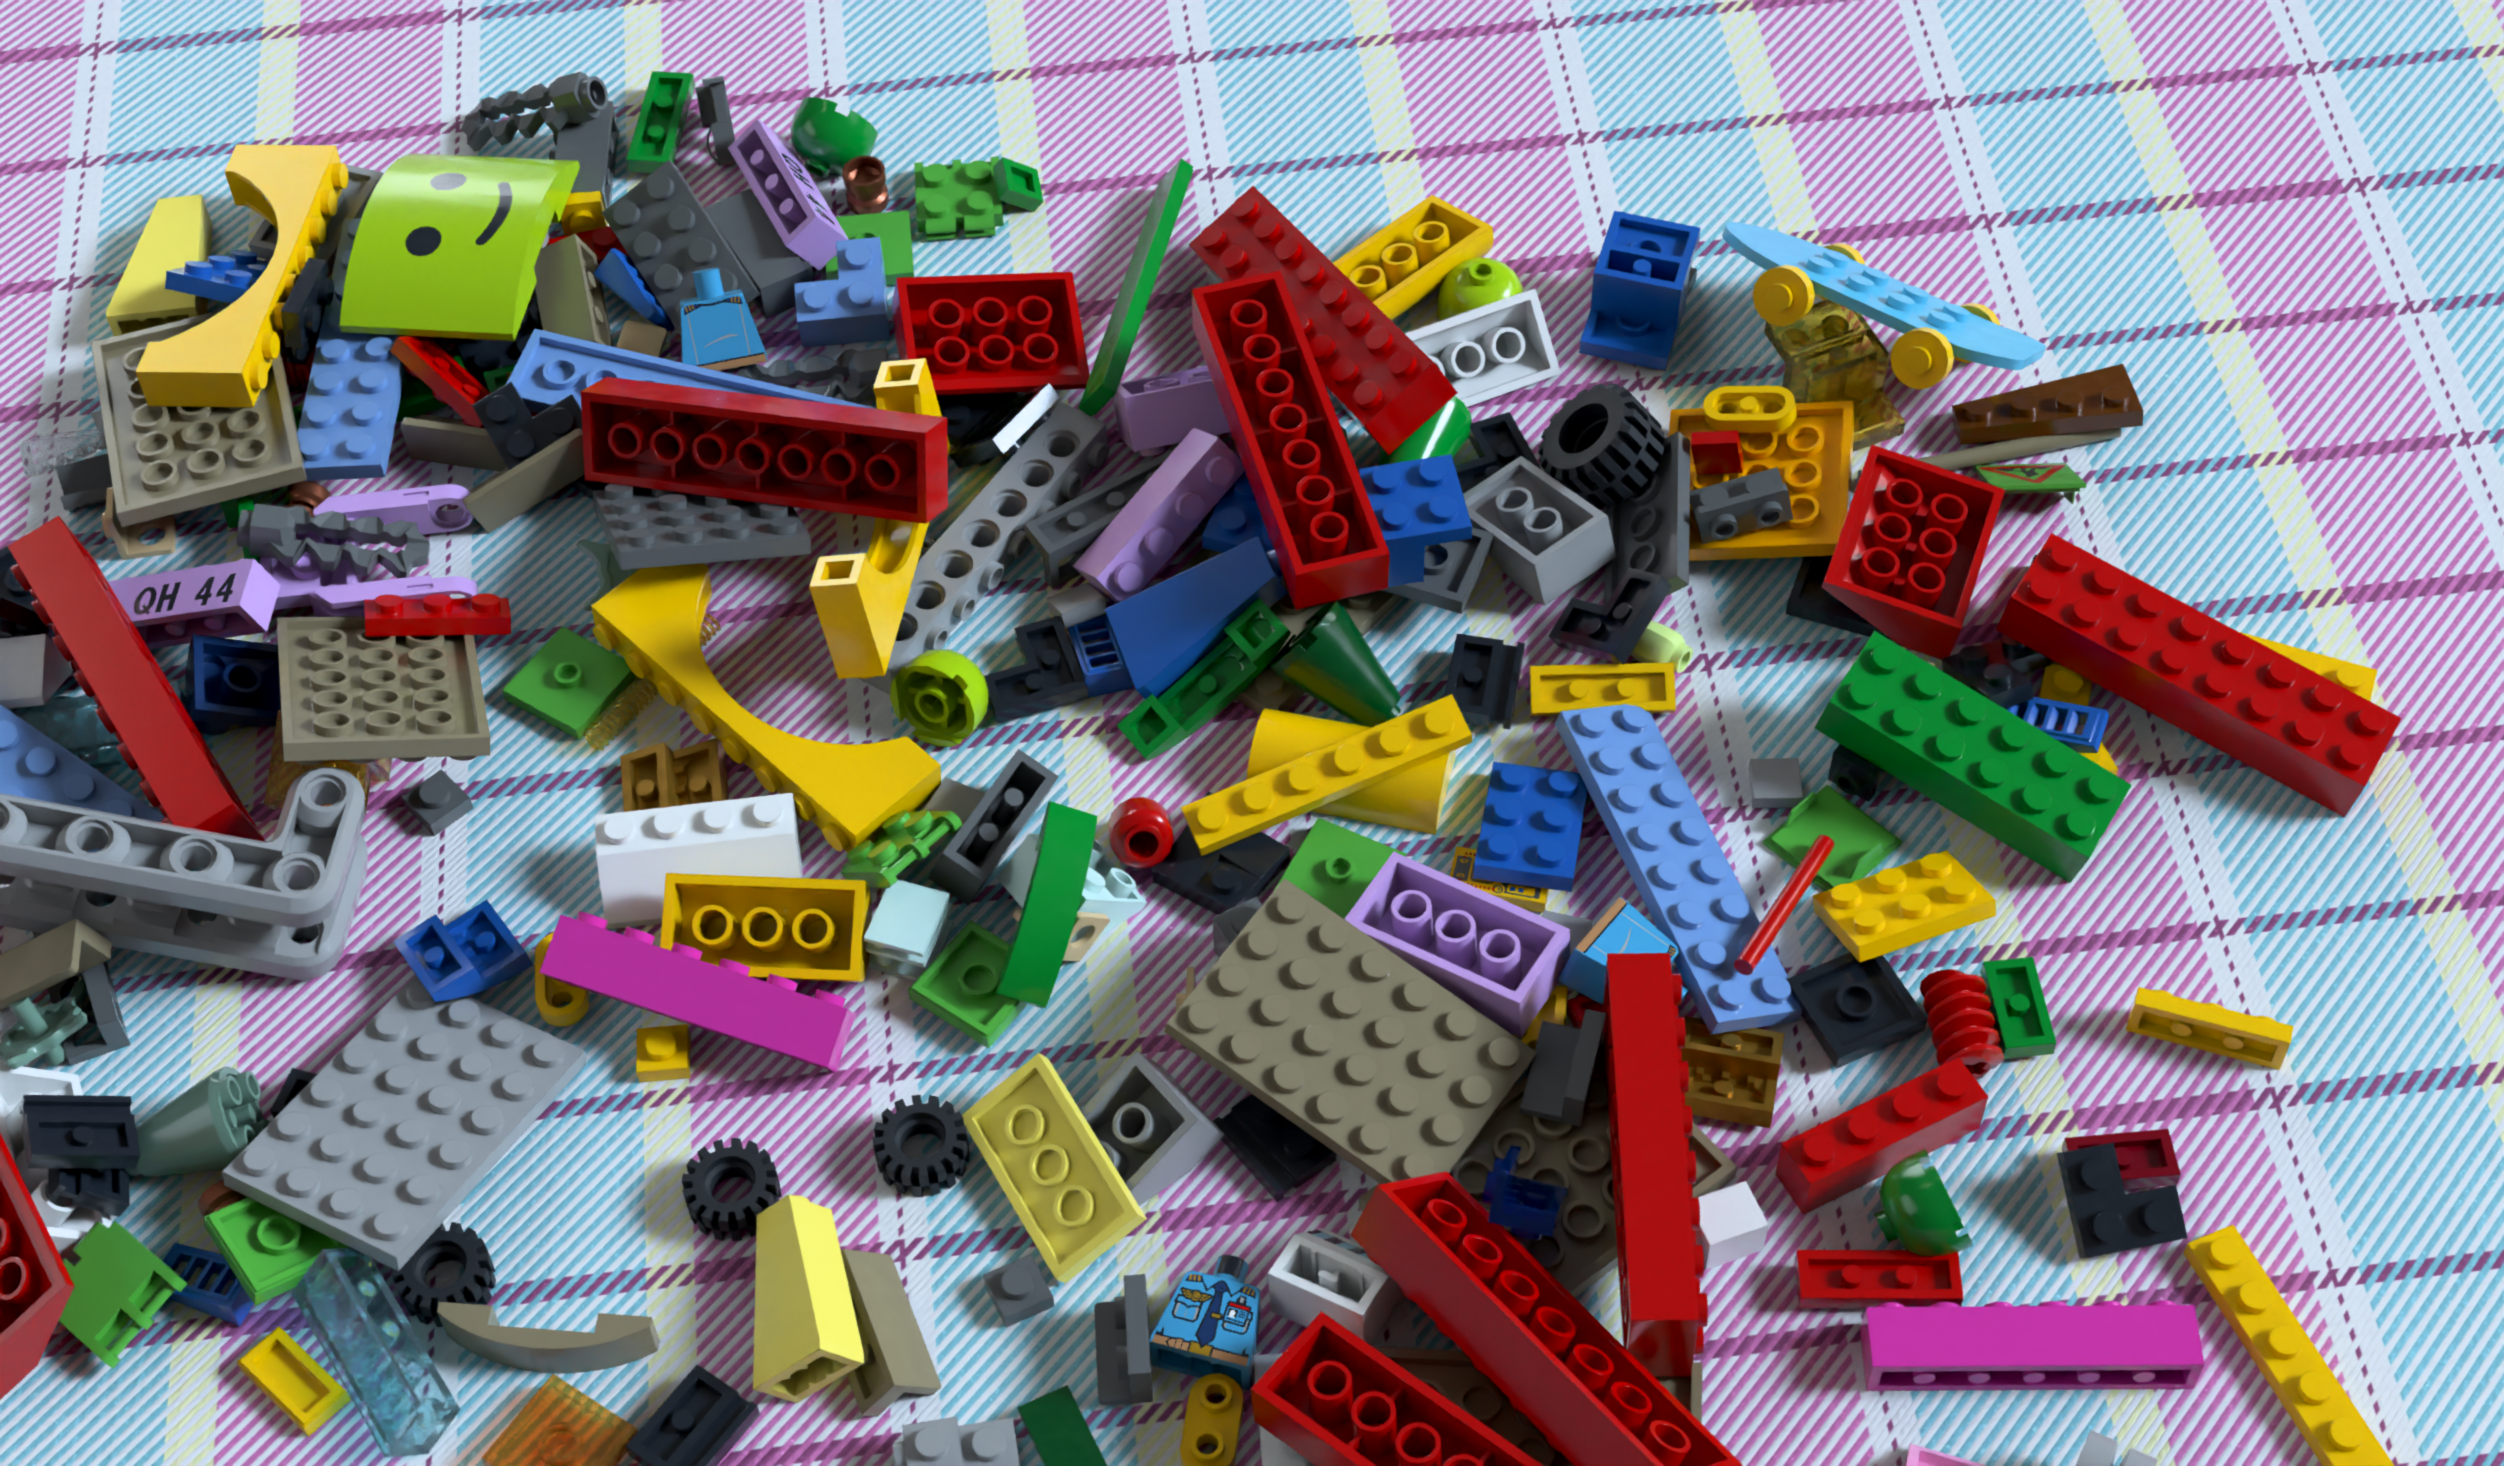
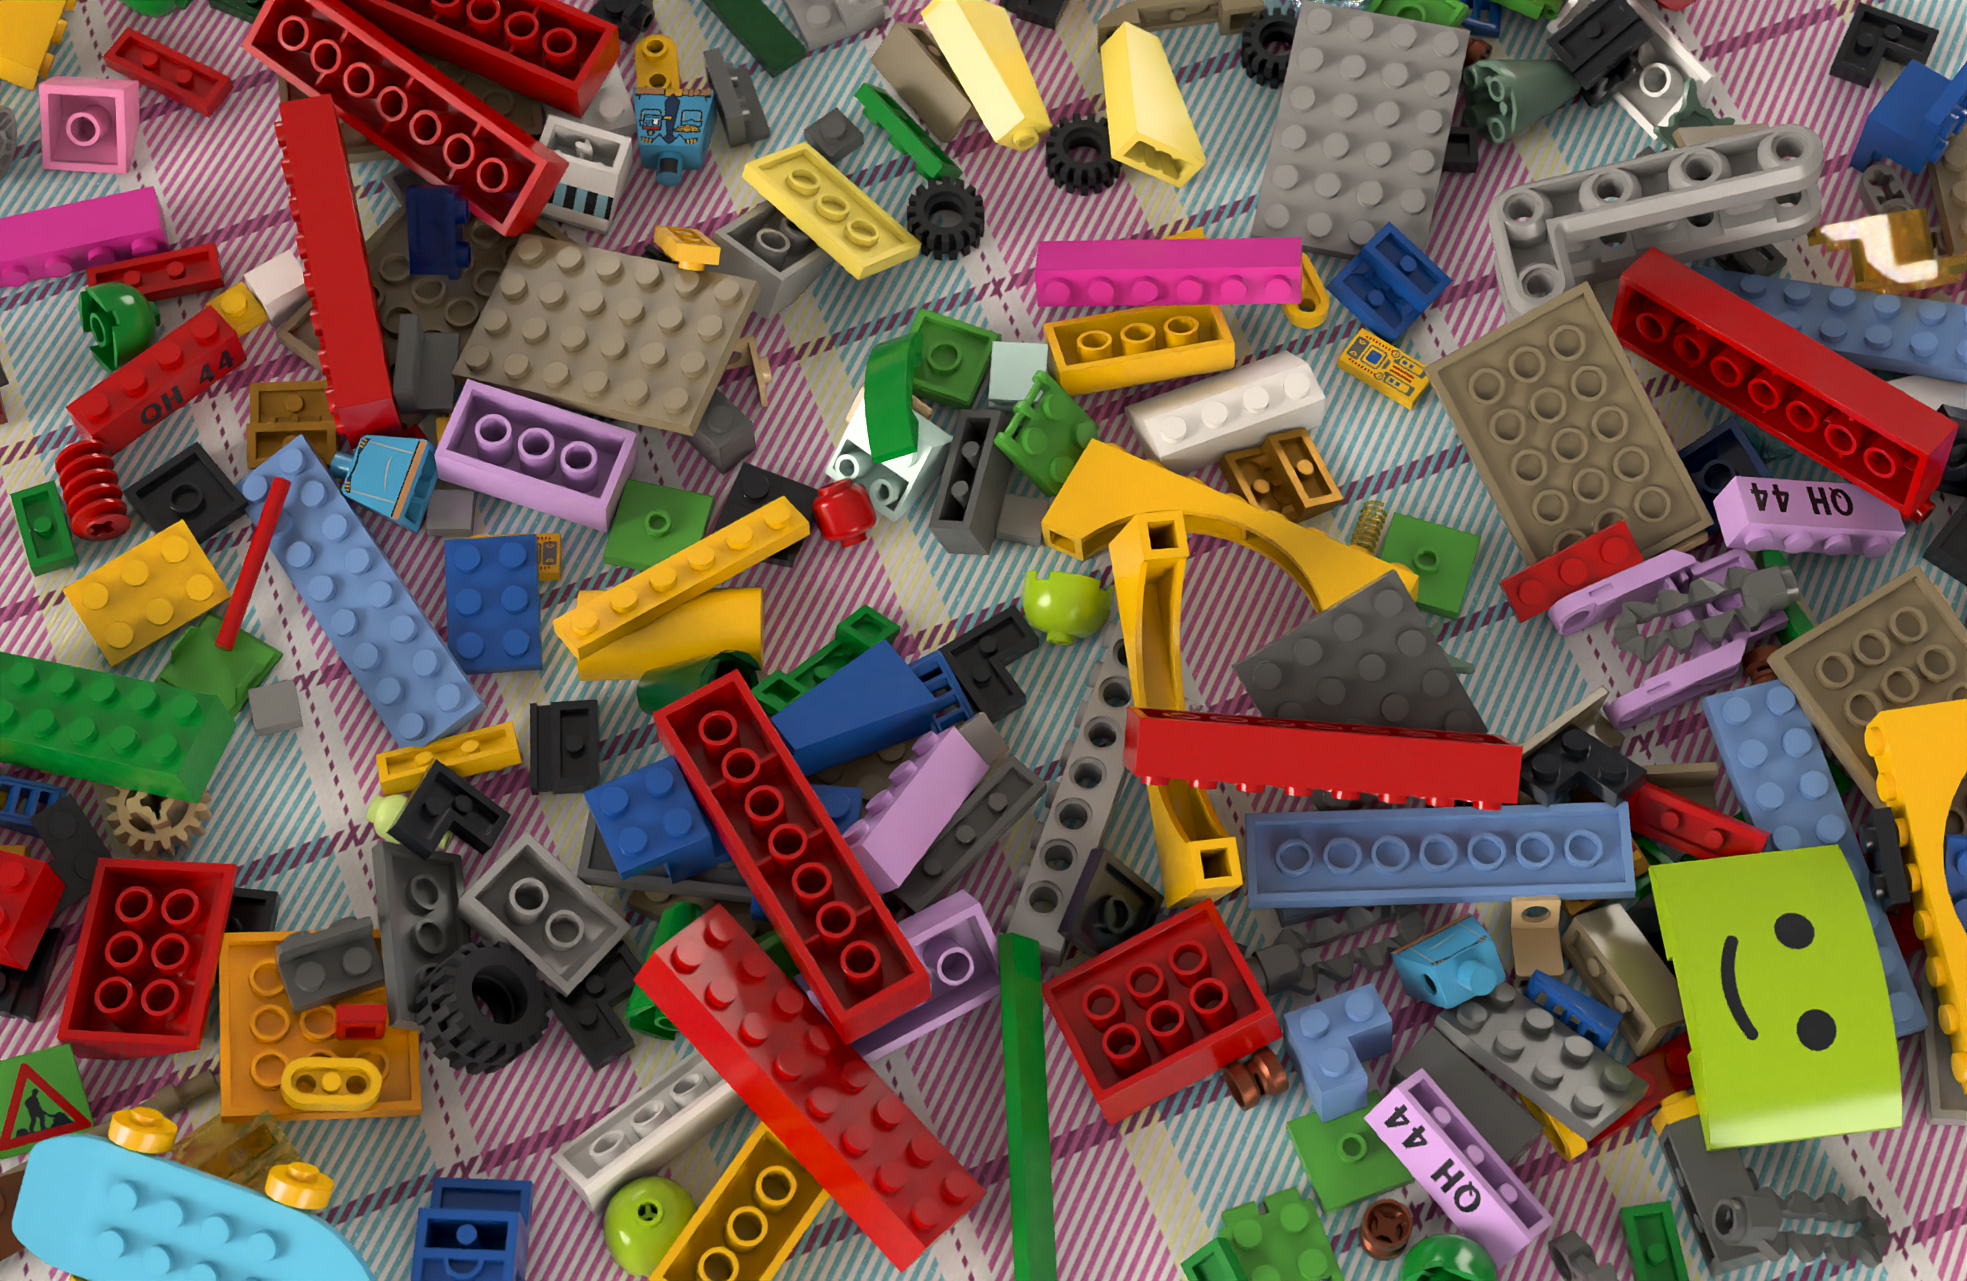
camera: 165 degrees right, 10 degrees up
(510, 881) = (1384, 368): none -> yellow tile
(638, 1210) = (1146, 109): none -> light yellow slope
(929, 1256) = (906, 134): none -> green plate
(1234, 1126) = (687, 247): none -> yellow plate
(1788, 1225) = (239, 309): none -> yellow plate

